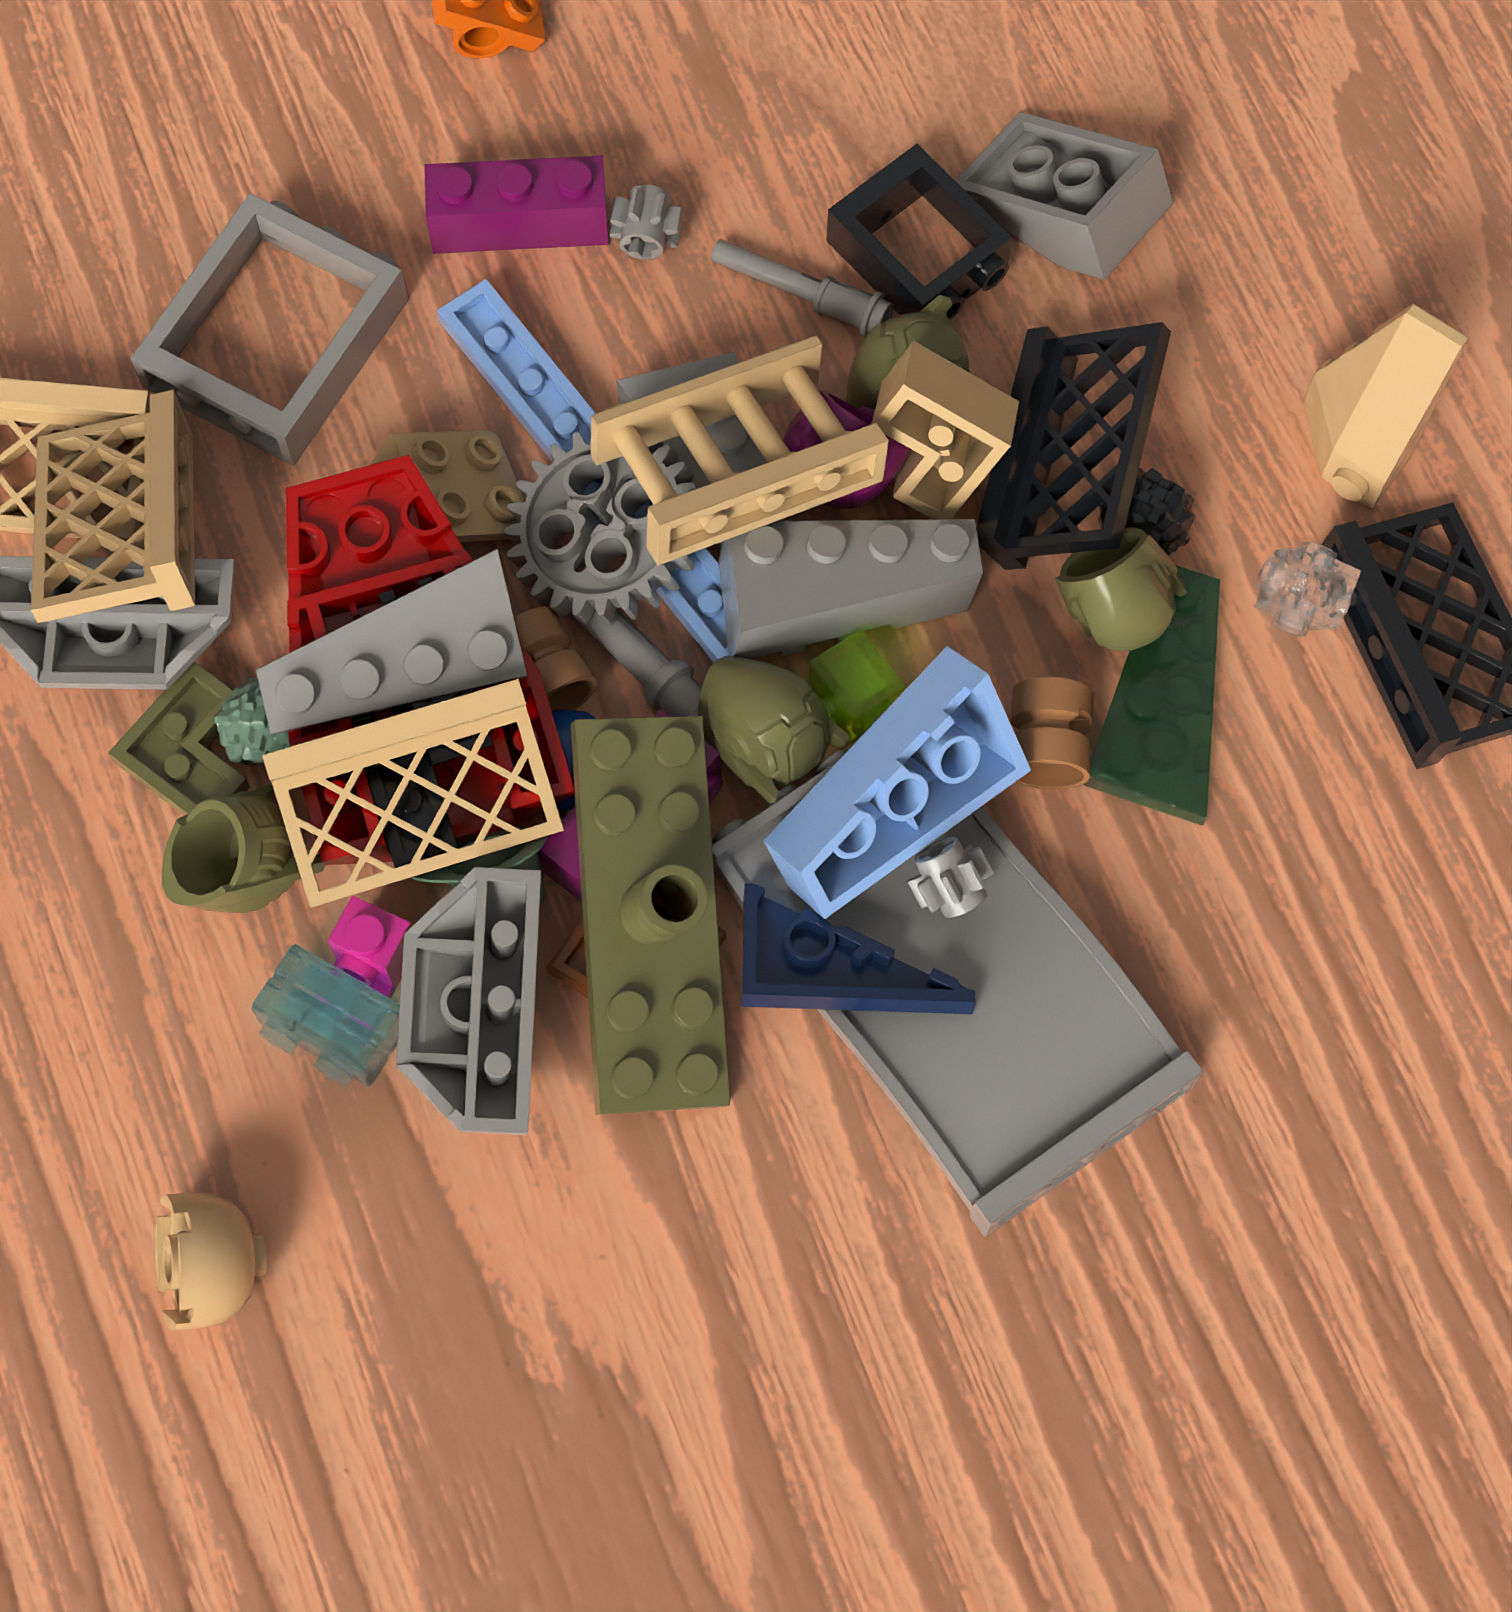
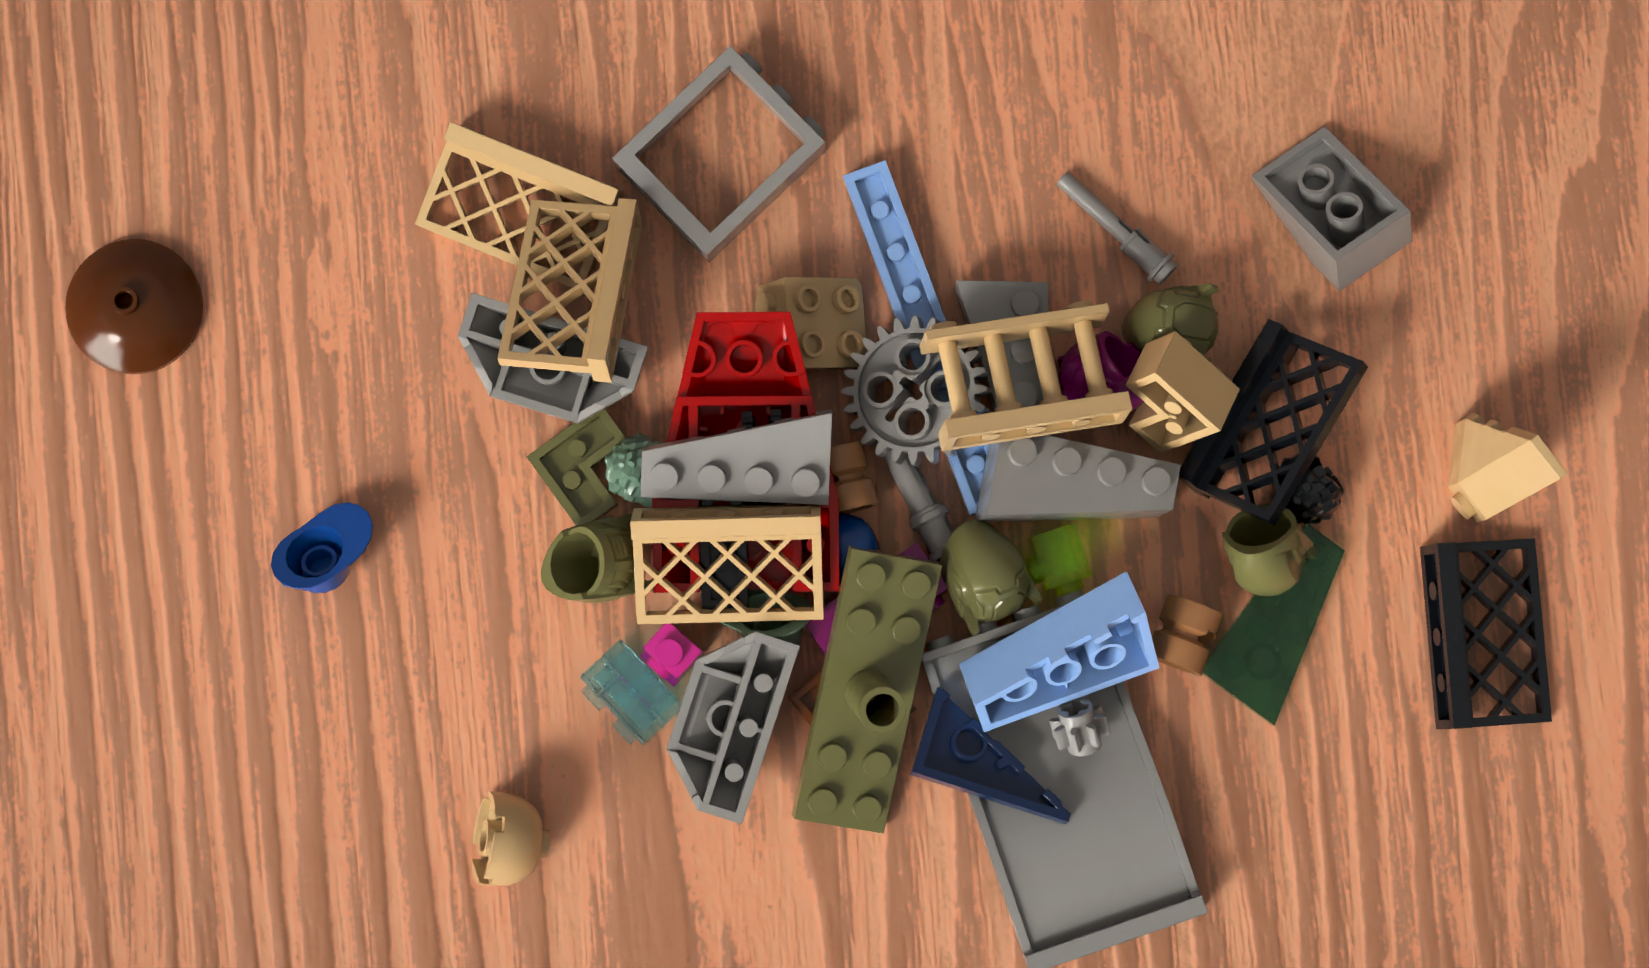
camera: 20 degrees right, 15 degrees up
(516, 204) = (924, 104): magenta brick -> none
(646, 222) = (1015, 146): light grey gear -> none
(888, 194) = (1193, 176): black window -> none
(1305, 588) = (1401, 582): clear brick -> none

